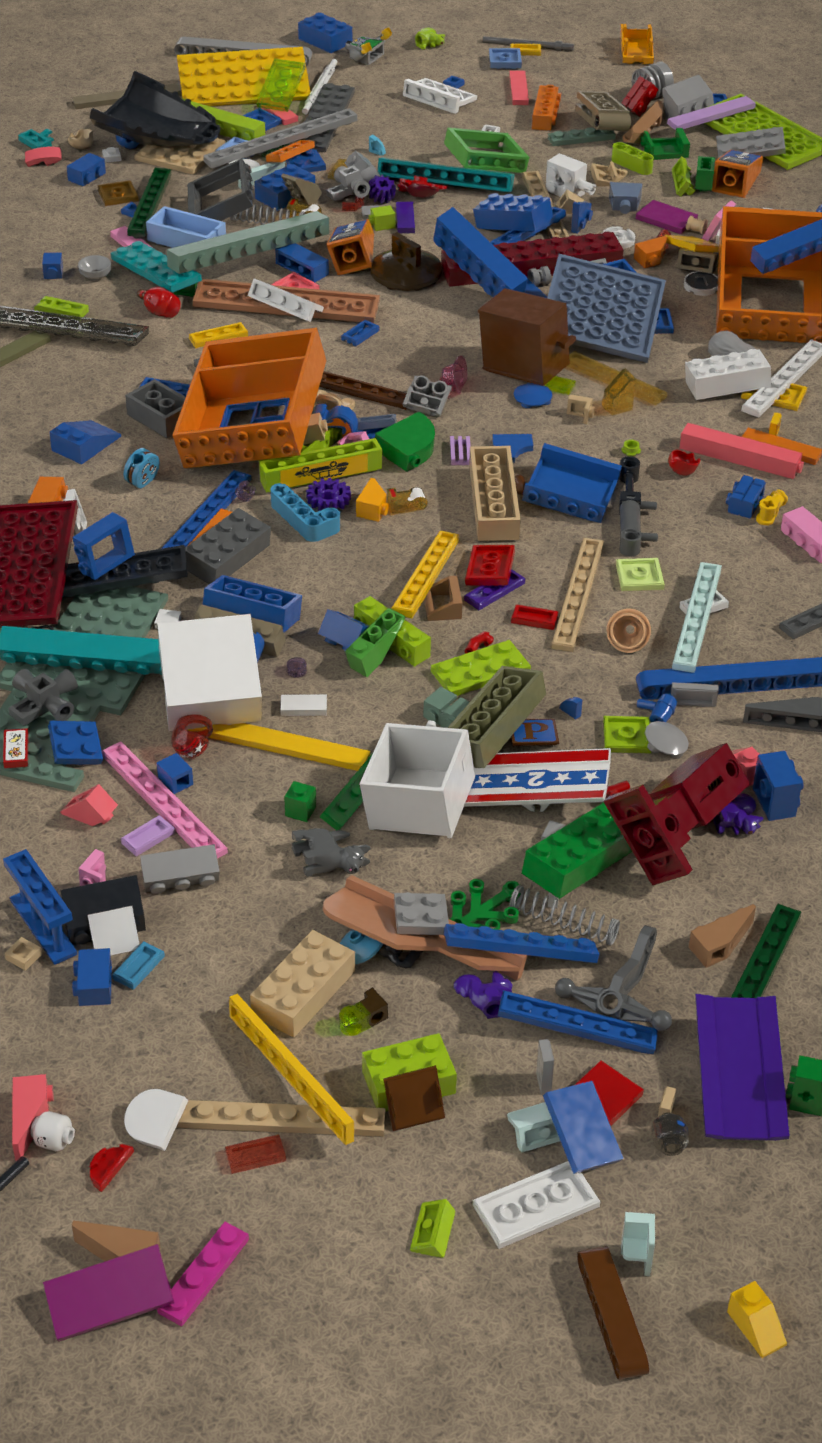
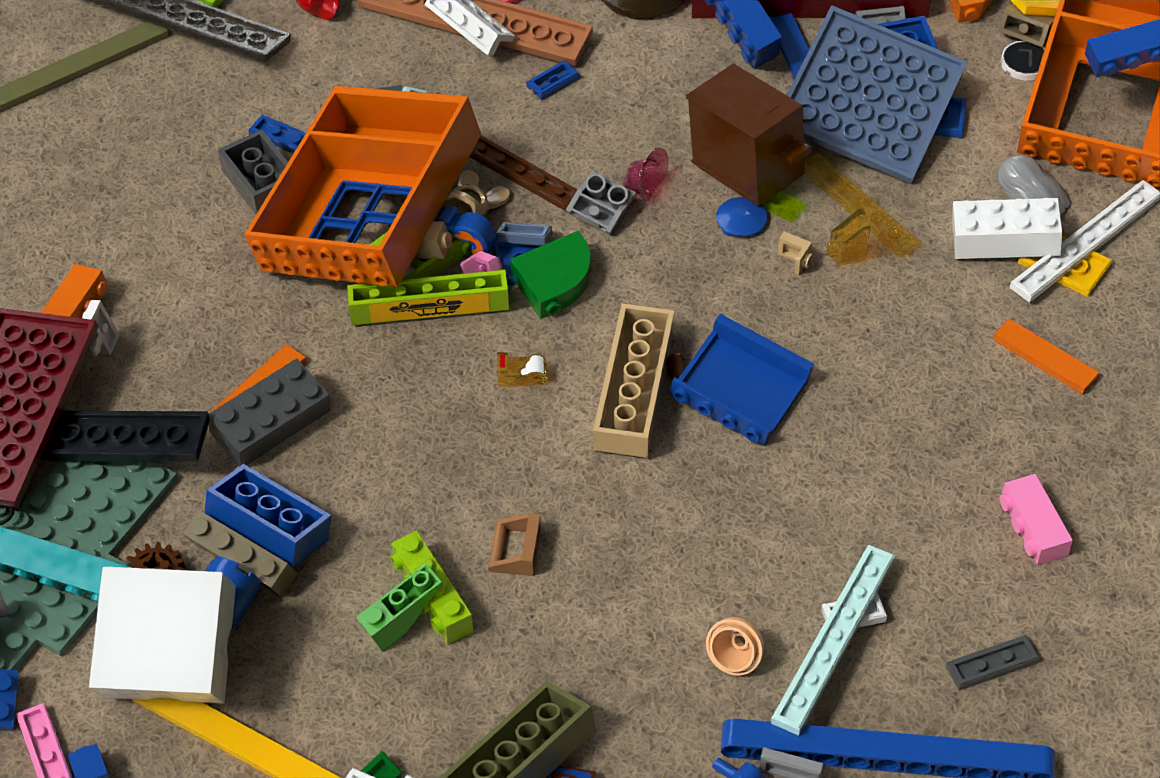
camera: 15 degrees right, 10 degrees up
(81, 439) = (154, 203): blue slope -> none
(123, 547) = (93, 389): blue window -> none
(141, 468) = (204, 267): dark azure head -> none
(167, 616) = (165, 513): white tile -> none
(191, 743) = (125, 719): clear red helmet -> none
(218, 499) = (284, 332): blue tile -> none
(224, 332) = (374, 57): yellow tile -> none
(248, 487) = (329, 314): bush -> none
(296, 667) = (289, 621): clear purple bush -> none
(304, 705) = (287, 684): white tile -> none
(308, 523) = (389, 392): dark azure beam -> none
(328, 494) = (423, 345): dark purple gear -> none
(341, 628) = (368, 574): blue brick -> none
(372, 502) = (475, 366): light orange slope -> none
(425, 574) = (500, 504): yellow tile -> none
(438, 707) = (456, 729): sand green piece -> none
(459, 441) = (622, 280): lavender tile -> none
(476, 668) = (524, 664): lime plate -> none
(477, 640) = (538, 619): red arm -> none
(488, 594) = (589, 535): dark purple tile -> none
(490, 565) = (593, 497): red tile -> none
(518, 443) = (687, 298): blue tile -> none
(534, 617) = (626, 592): red tile -> none
(539, 276) = (810, 21): light grey wheel -> none
(572, 707) = (625, 756): blue tile -> none
(577, 595) = (694, 564): tan tile -> none
(629, 510) = (806, 435): dark grey piece -> none
(631, 448) = (841, 323): lime plate -> none
(640, 574) = (786, 544): yellowish green tile -> none
(683, 463) = (901, 366): red hair -> none
(741, 451) = (986, 359): coral brick -> none
(745, 496) = (968, 438): blue brick -> none
(770, 507) = (994, 462): yellow connector -> none
(775, 424) = (1046, 321): yellow tile -> none

